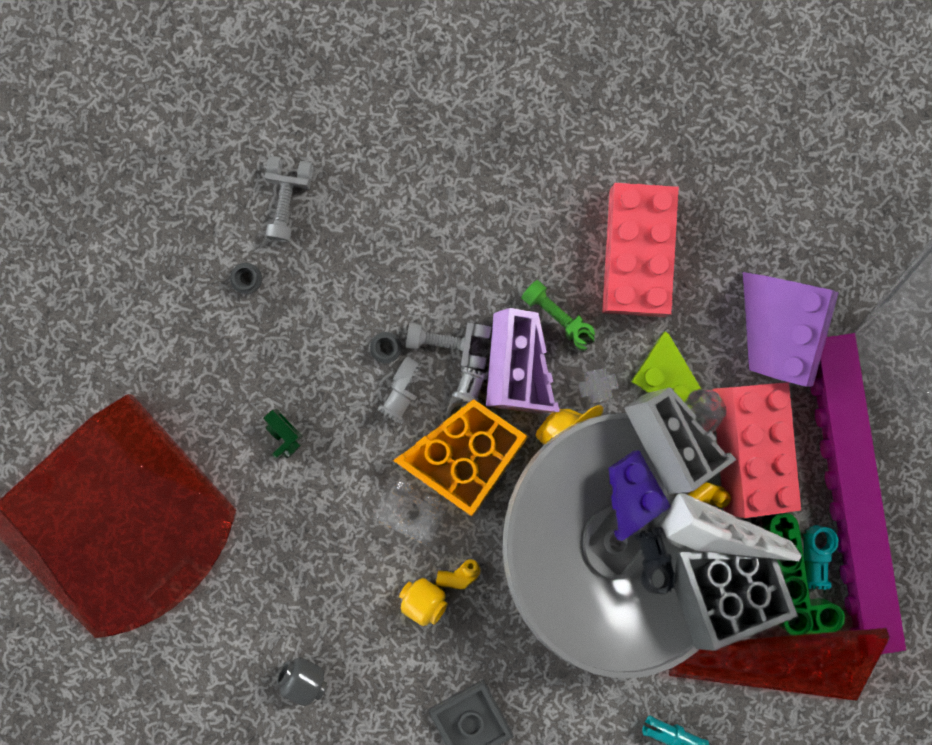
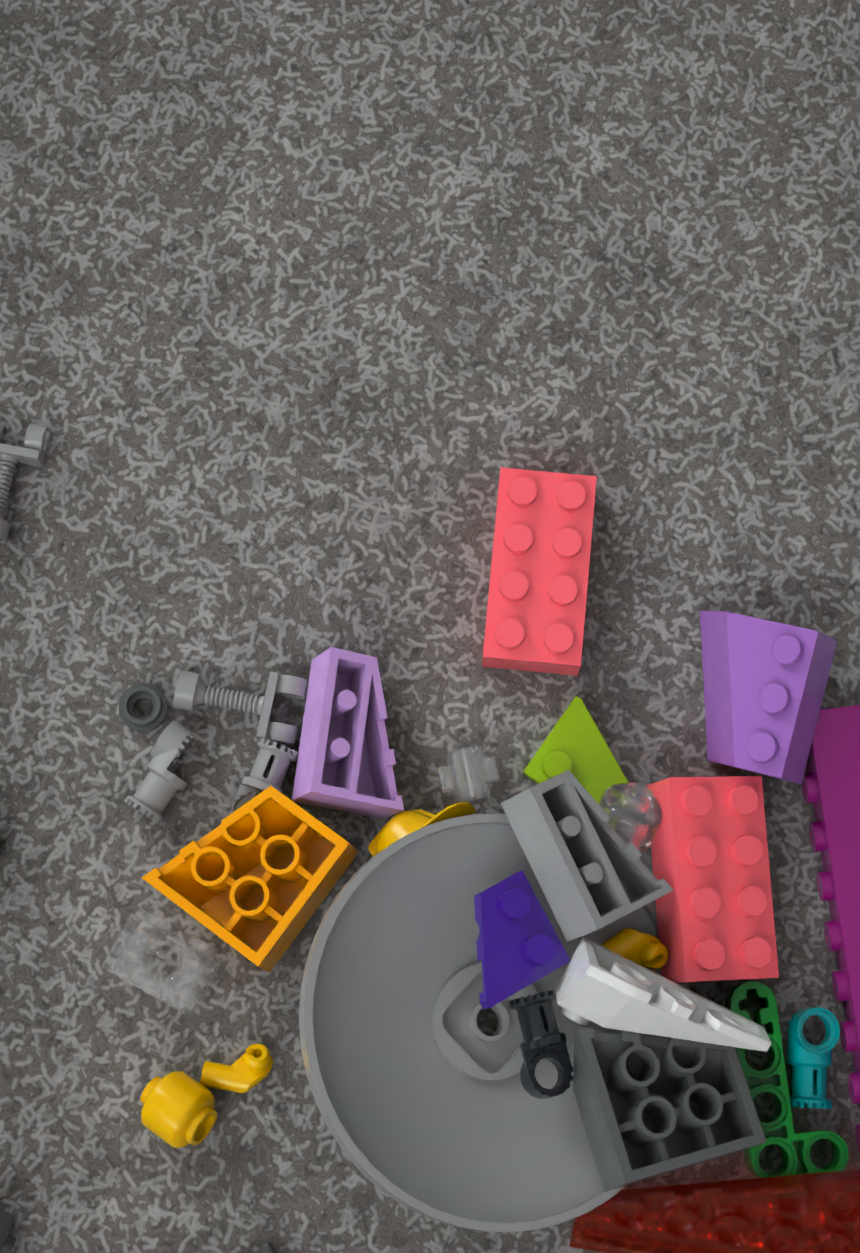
camera: 10 degrees right, 10 degrees down
(537, 295) = (432, 683): bright green bar -> none

